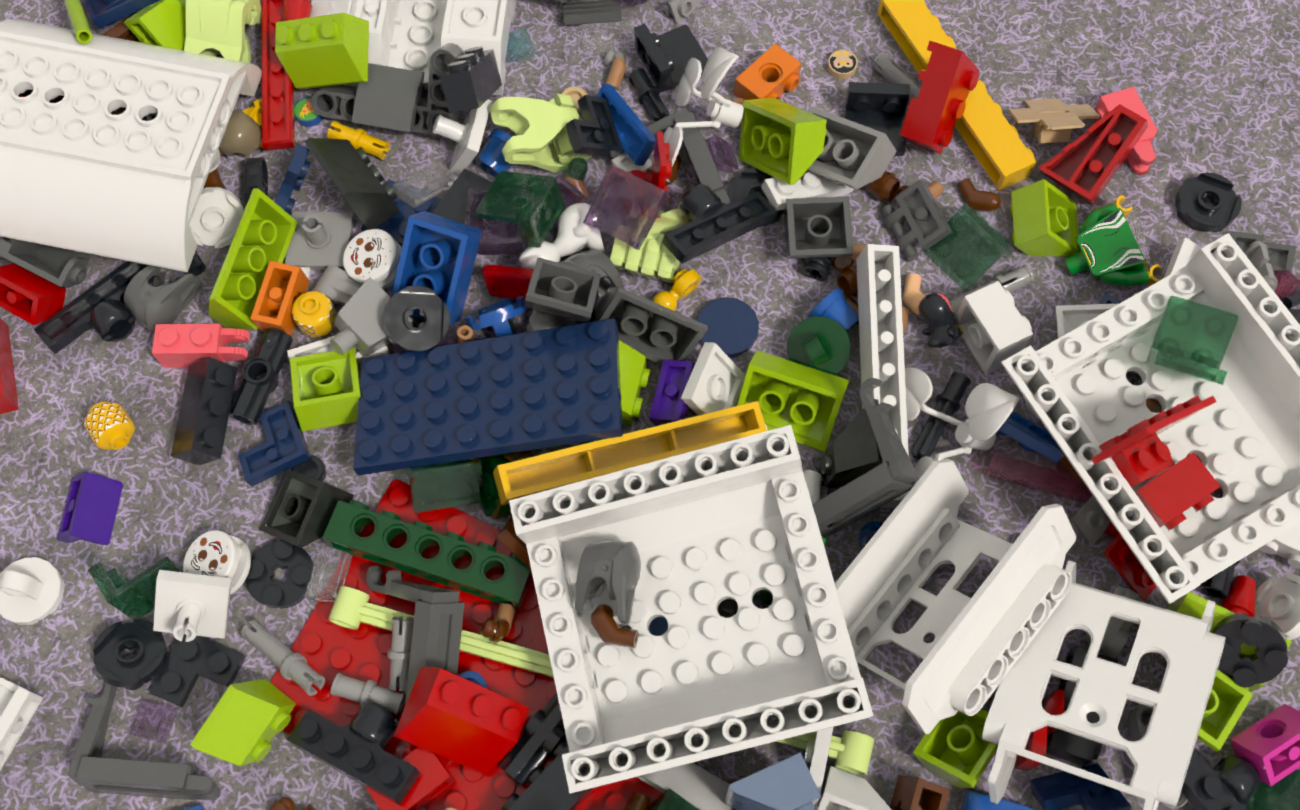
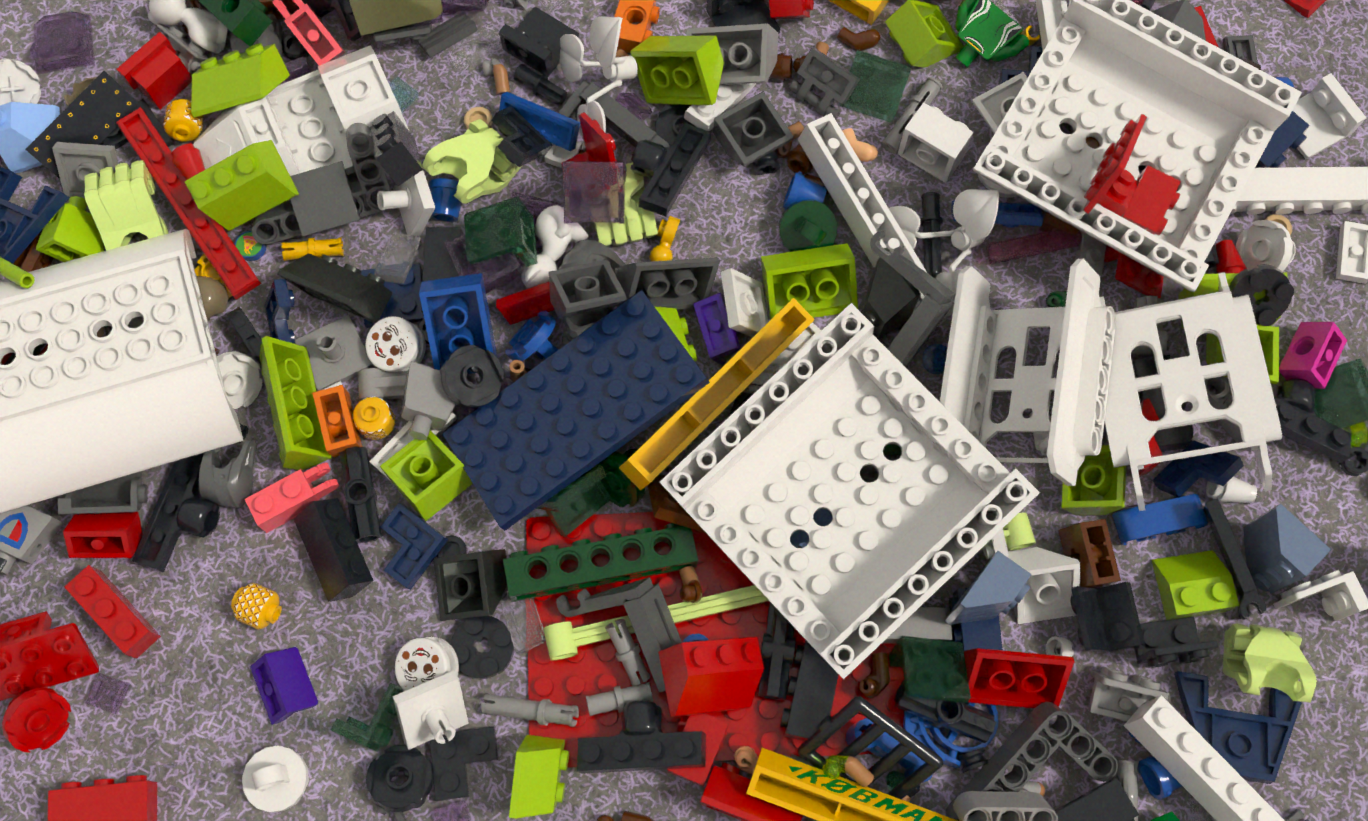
camera: 30 degrees left, 5 degrees up
(576, 174) = (522, 183): clear green arm -> none
(608, 630) = (791, 541): reddish brown arm -> none
(612, 563) = (770, 485): dark grey helmet -> none
(730, 325) = (727, 243): dark blue tile -> none
(939, 316) = (887, 154): black animal -> none
(1193, 339) = (1100, 76): clear green bracket -> none

